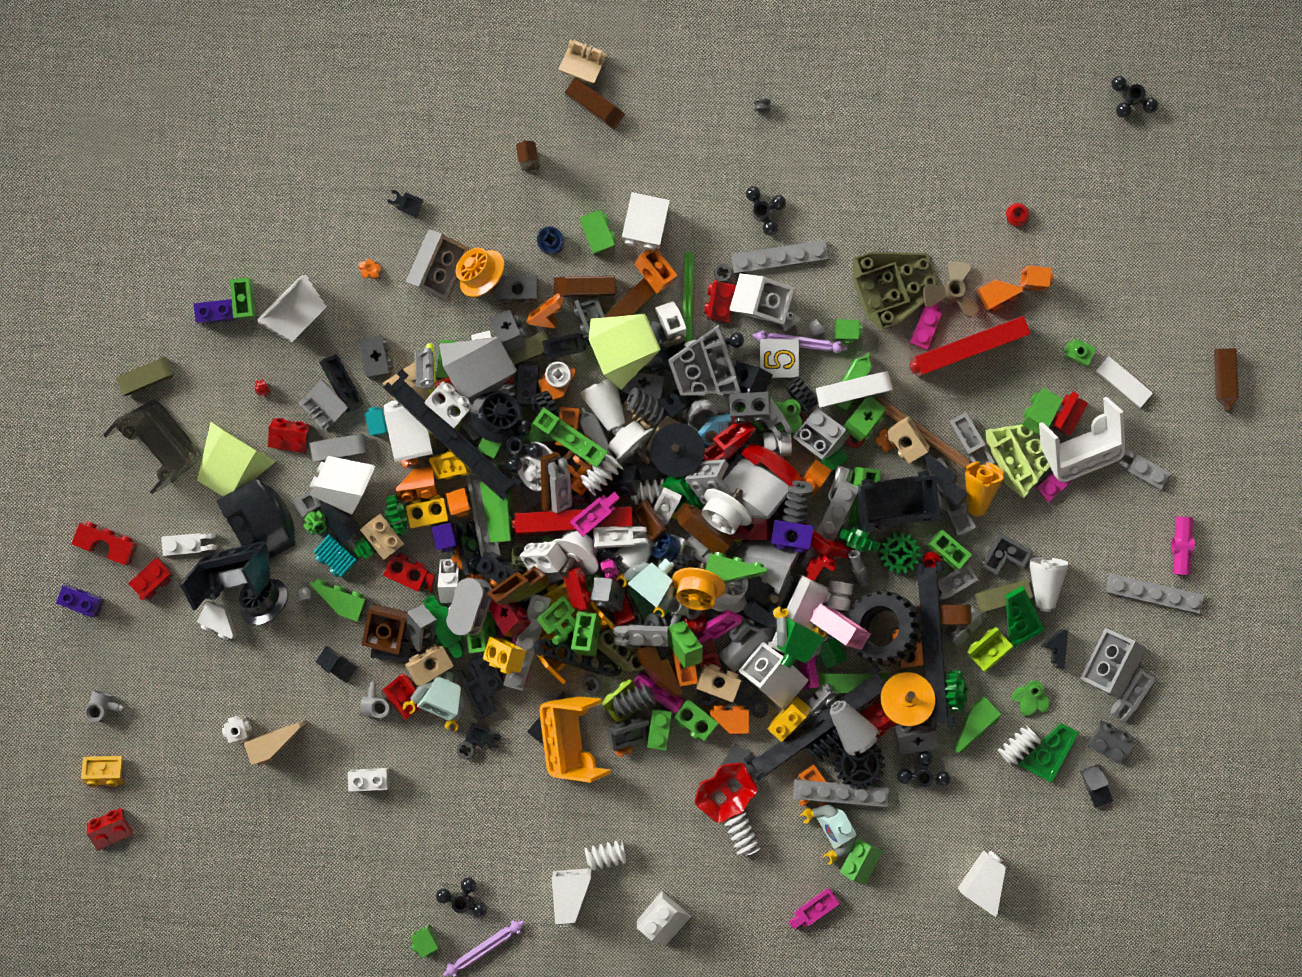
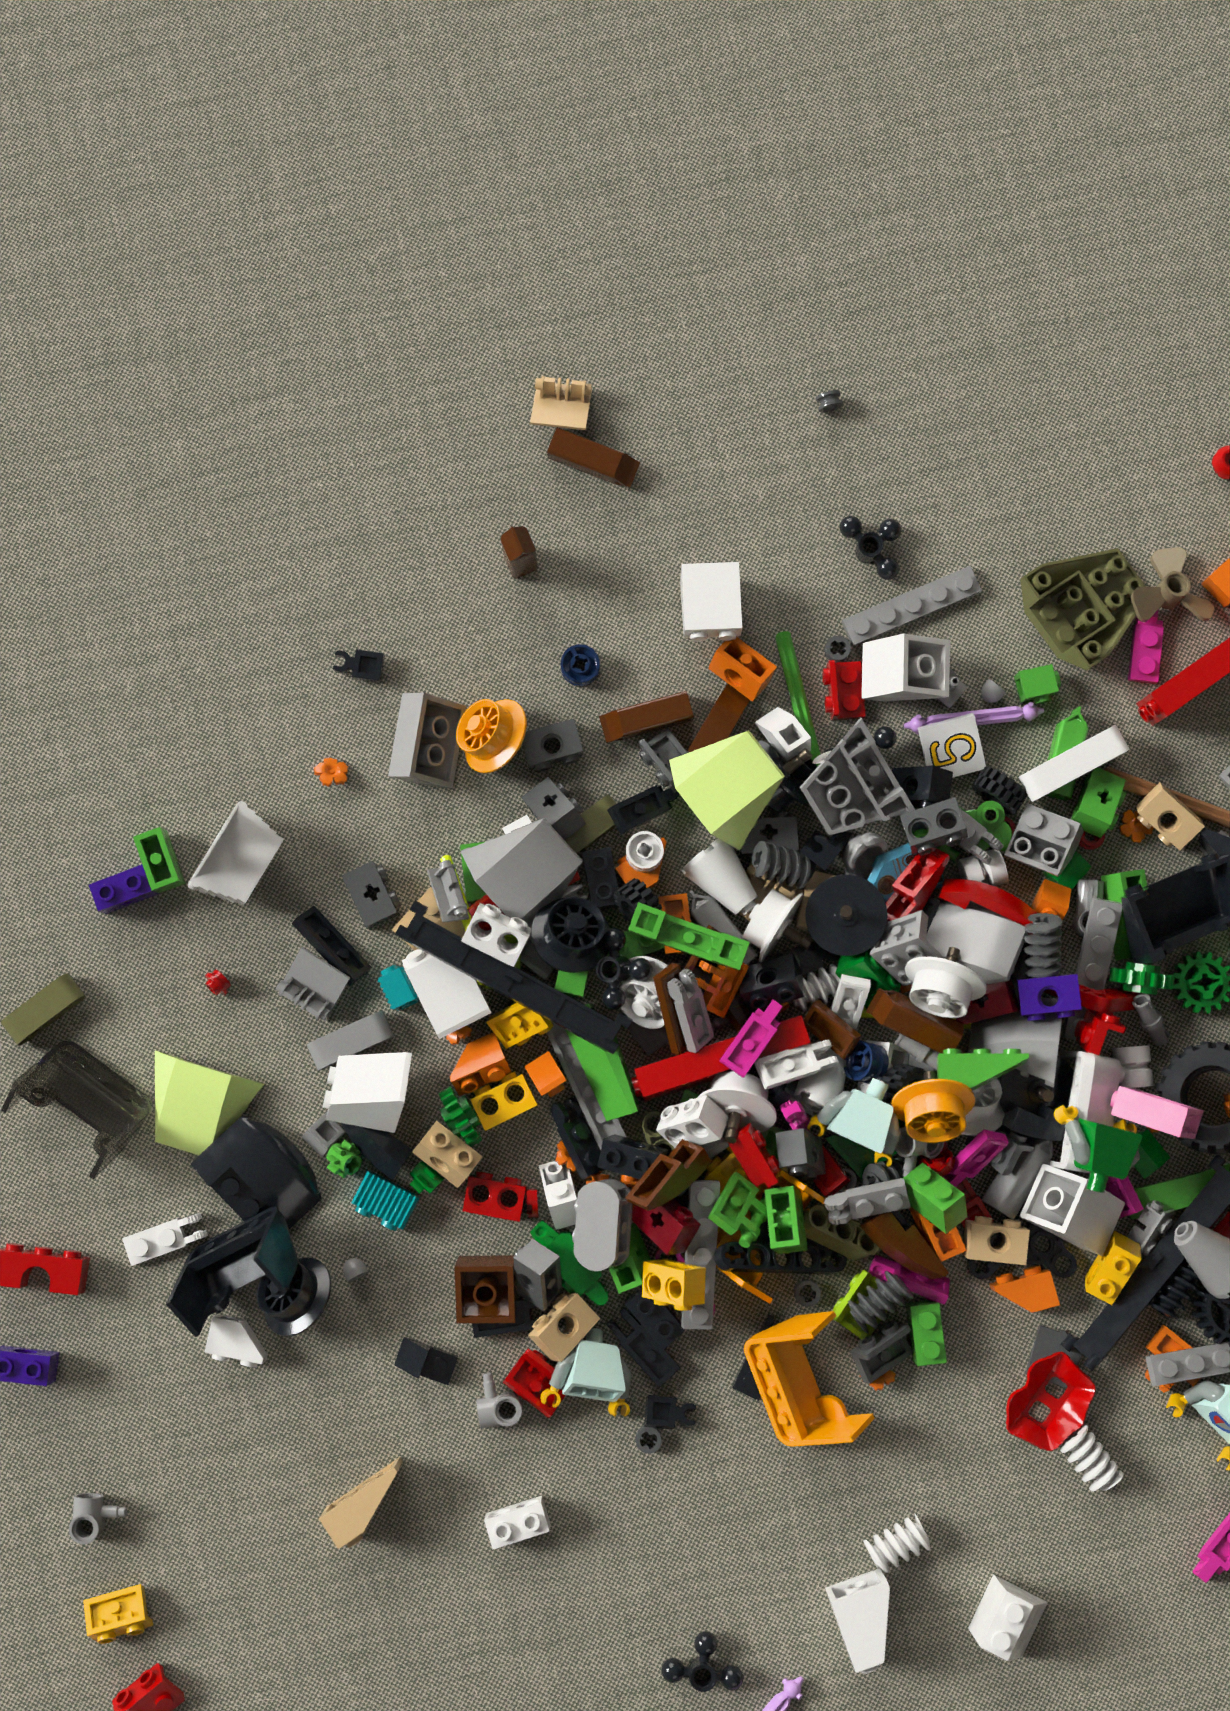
camera: 15 degrees left, 5 degrees down
(150, 579) = (121, 1306): red bracket -> none
(243, 726) = (309, 1490): white brick -> none
(288, 435) = (272, 1041): red bracket -> none
(344, 603) = (413, 1266): bright green slope -> none
(445, 537) = (540, 1131): dark purple brick -> none
(544, 314) = (597, 773): orange slope -> none
(597, 232) = (644, 636): bright green brick -> none
(600, 474) = (745, 979): white piece -> none
(699, 715) = (976, 1299): bright green brick -> none

